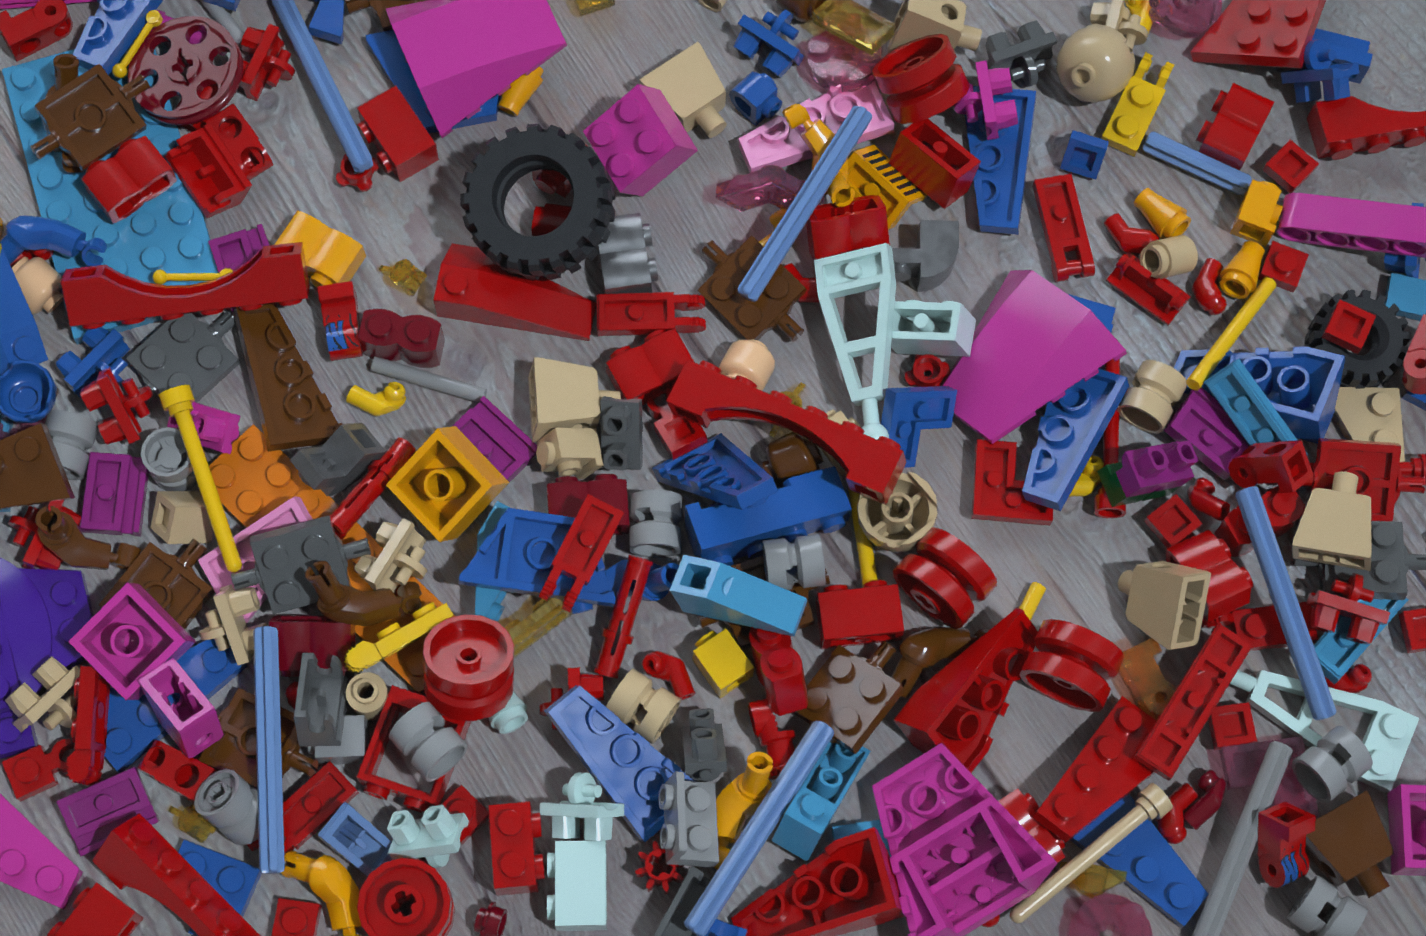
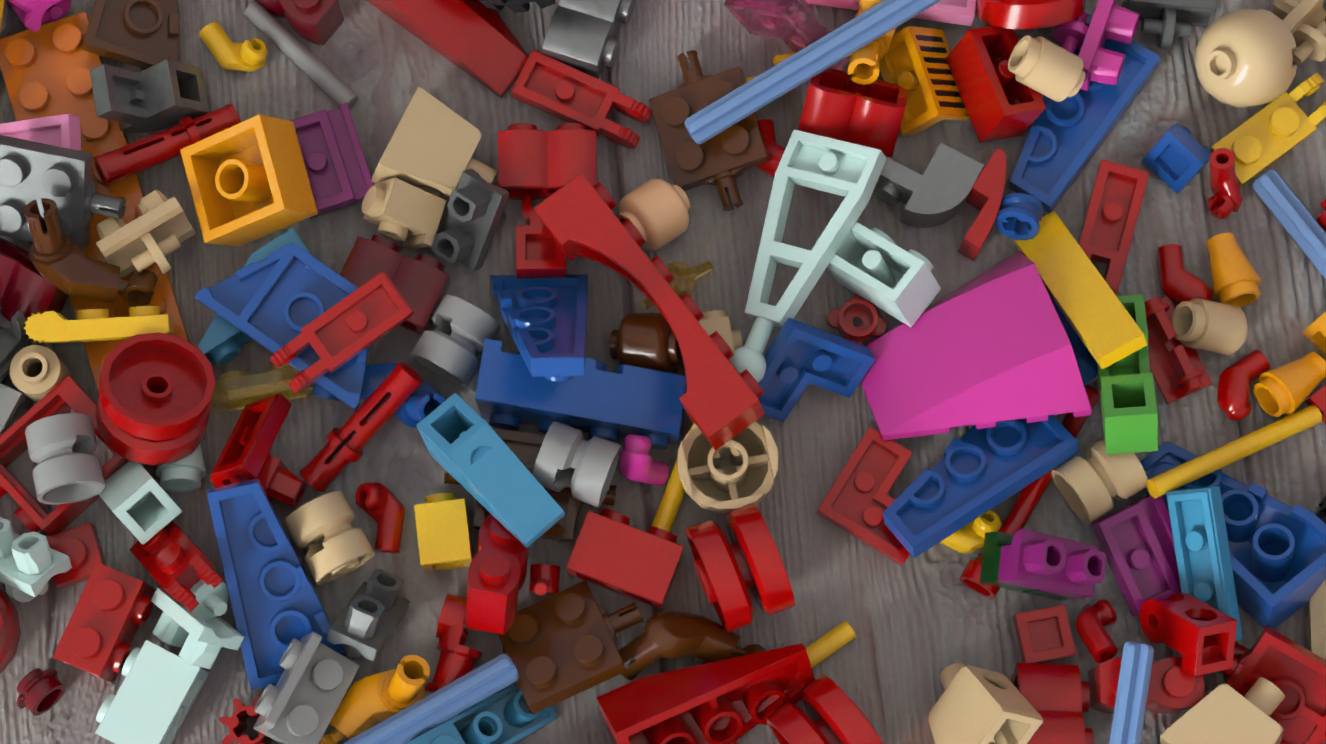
camera: 30 degrees right, 5 degrees up
(493, 748) = (139, 501): none -> light aqua brick
(543, 777) = (176, 563): none -> red hinge
(550, 665) = (251, 440): none -> red tile
(810, 658) = (544, 579): none -> red hand
(833, 542) = (637, 463): none -> dark pink arm
(968, 133) = (1046, 68): none -> tan brick
(973, 246) = (986, 197): none -> red slope
(1000, 245) = (1019, 216): none -> blue bush
(1073, 273) = (1082, 293): none -> yellow tile
(1125, 157) = (1224, 184): none -> red arm
(1141, 326) = (1129, 394): none -> bright green arch

